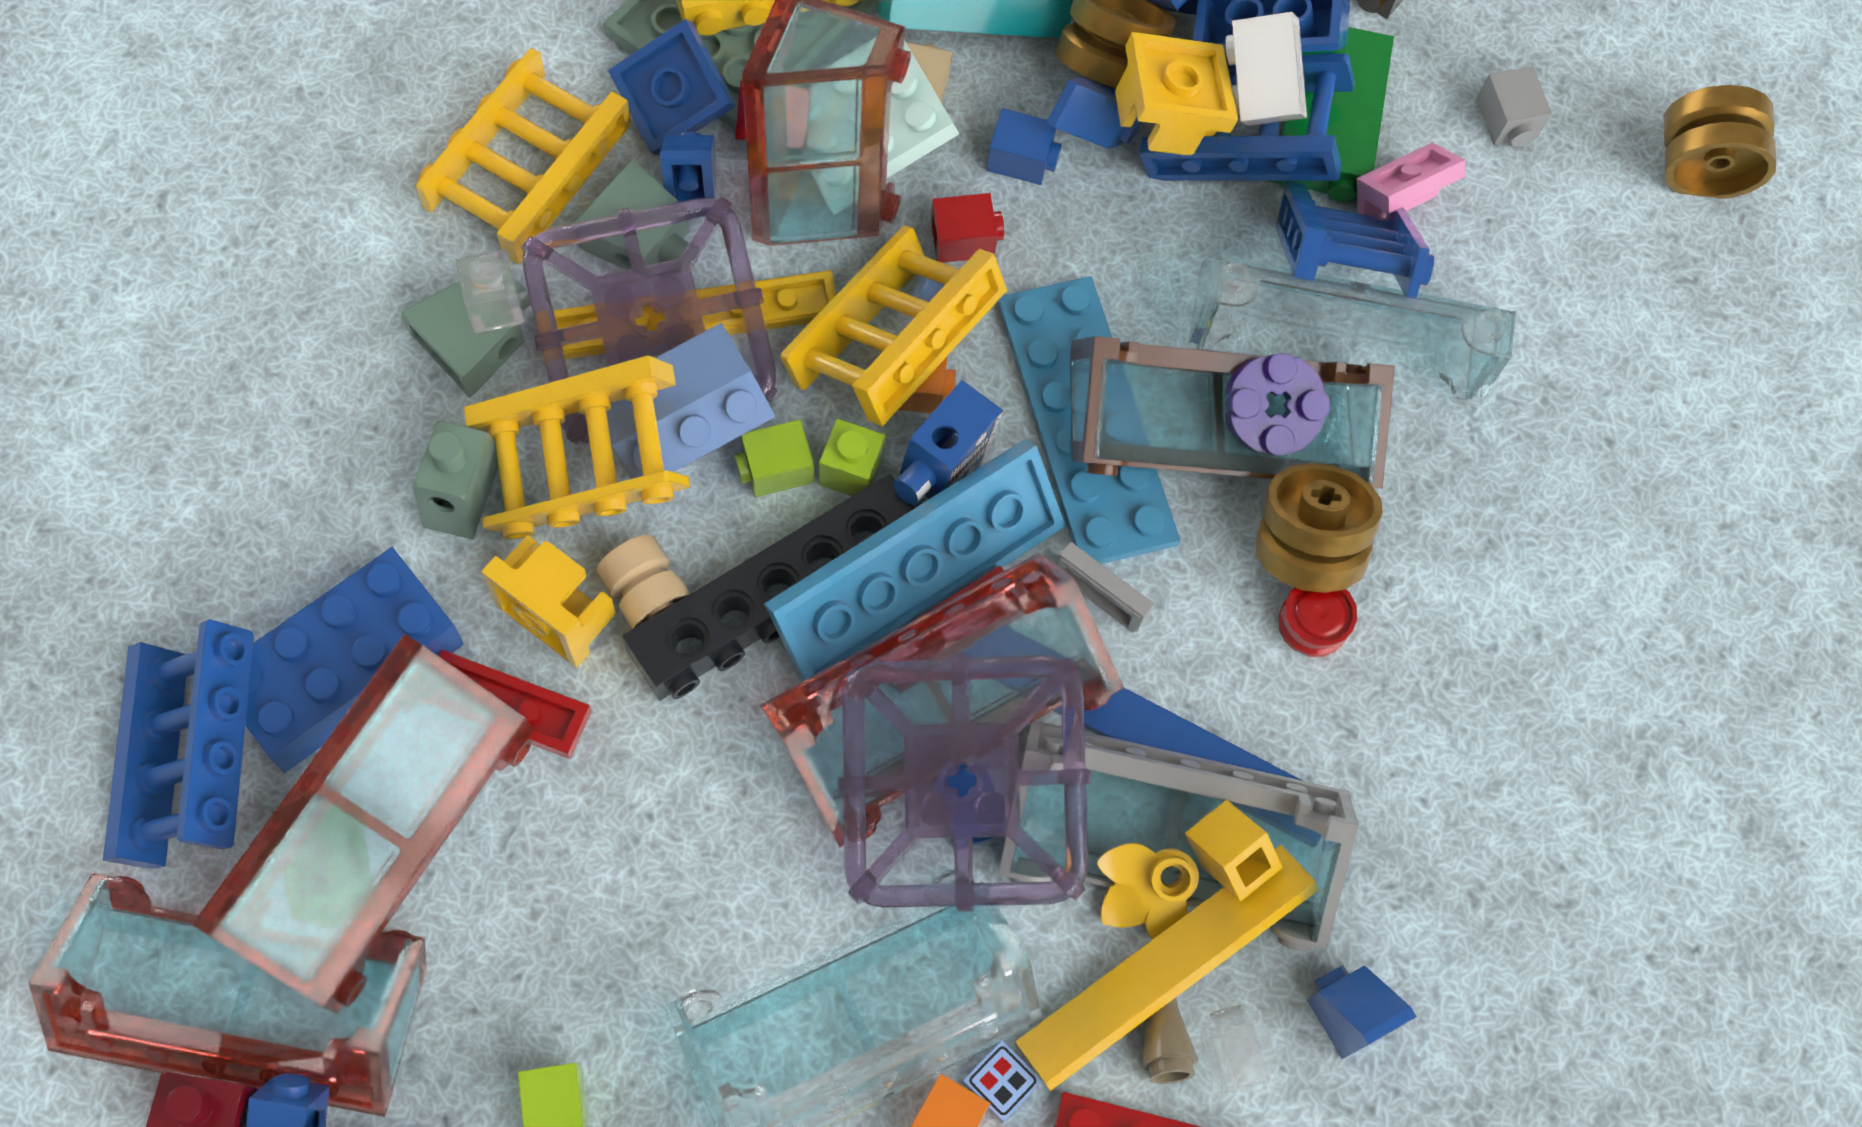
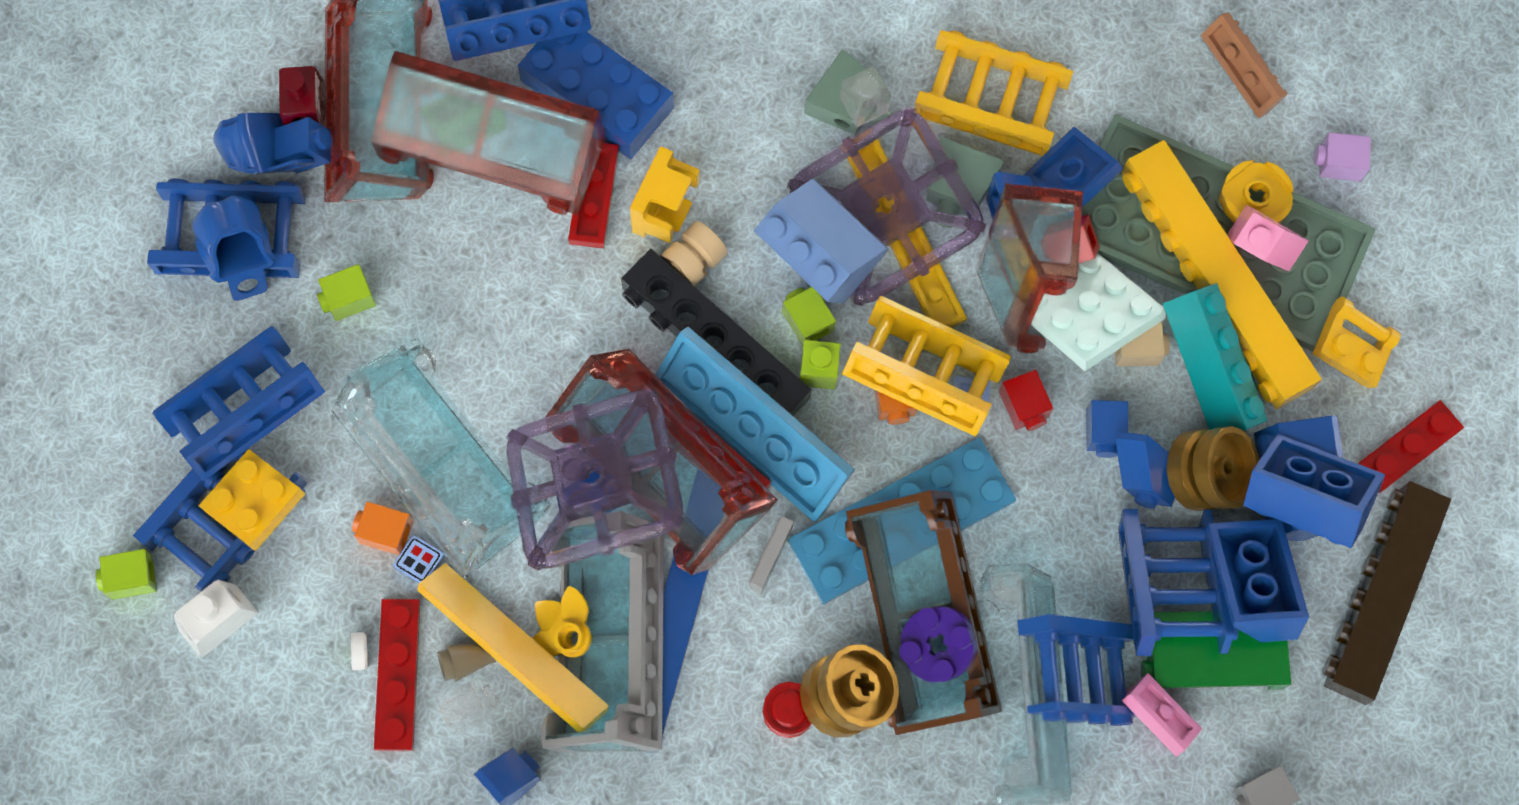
camera: 80 degrees right, 5 degrees up
(458, 469) = (737, 118): sand green torso -> none
(546, 408) = (801, 181): yellow fence -> none
(938, 456) = (851, 422): blue torso -> none
(1179, 88) = (1164, 514): yellow panel -> none
(1233, 850) = (594, 671): yellow brick -> none
(1267, 69) = (1197, 576): white brick -> none

